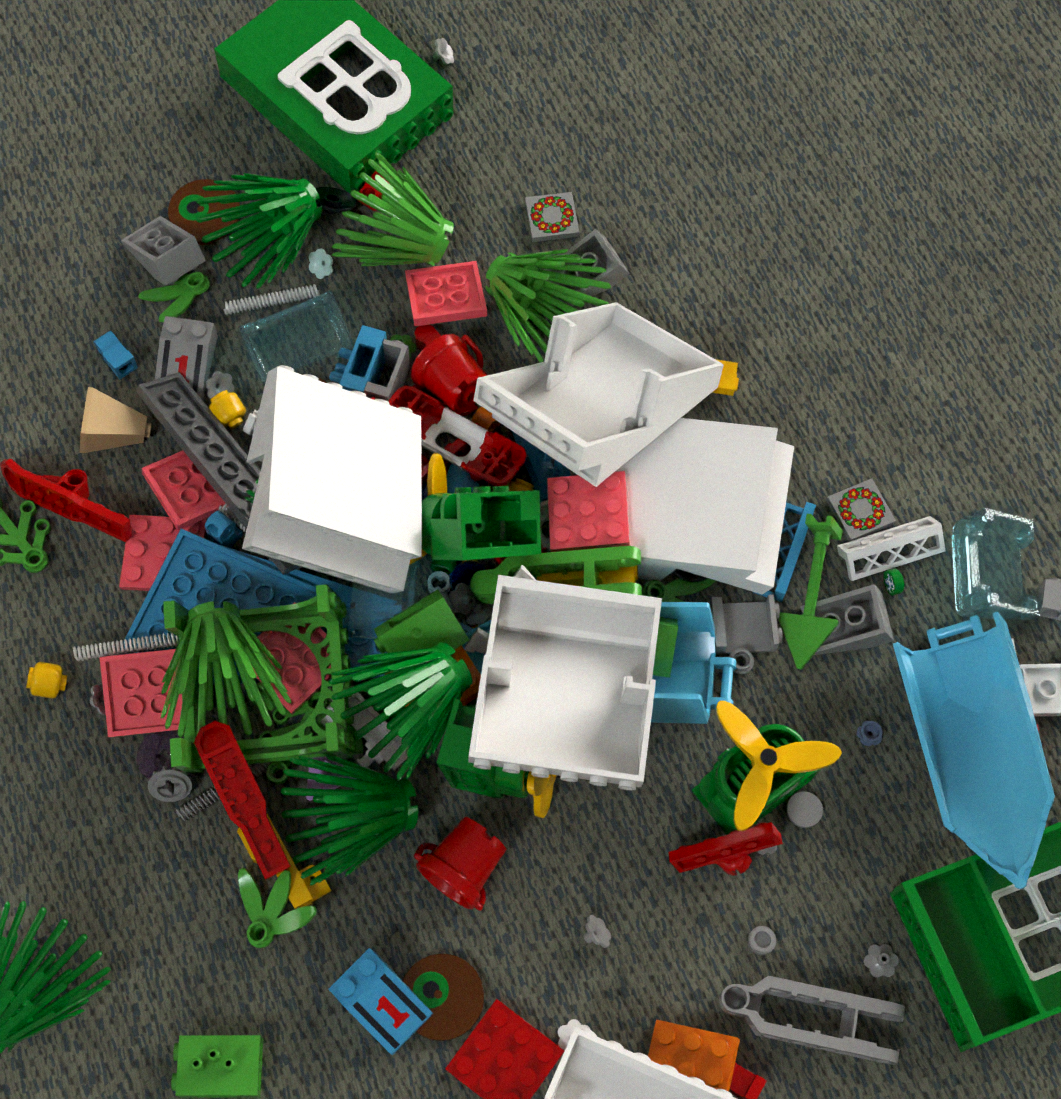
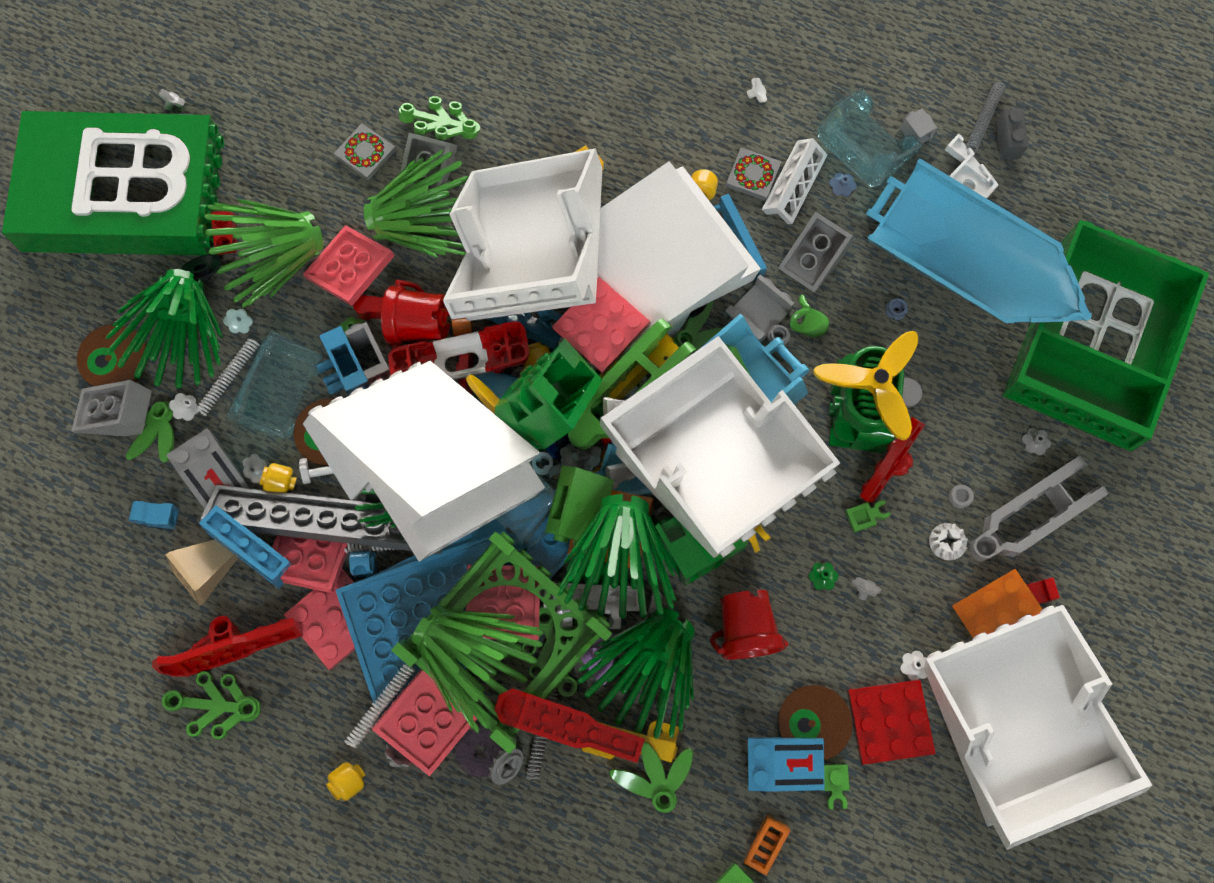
camera: 45 degrees left, 5 degrees up
(149, 433) = (245, 545): none -> dark azure fence
(212, 295) = (183, 407): none -> white plant
(326, 1044) = (763, 831): none -> orange slope
(409, 1060) = (836, 781): none -> bright green plate
(418, 772) = (651, 603): none -> light grey tile
(571, 896) = (819, 580): none -> green plant
(651, 265) = (465, 127): none -> bright green plant
(656, 874) = (864, 517): none -> bright green plate
(697, 966) = (942, 549): none -> white gear
(785, 679) = (814, 322): none -> bright green piece
(804, 481) = (706, 182): none -> yellow head
(805, 631) = (797, 279): bright green piece -> none
(893, 582) = (818, 201): green tile -> none
(934, 588) = (842, 184): none -> sand blue plant
(937, 444) = (757, 90): none -> white plant

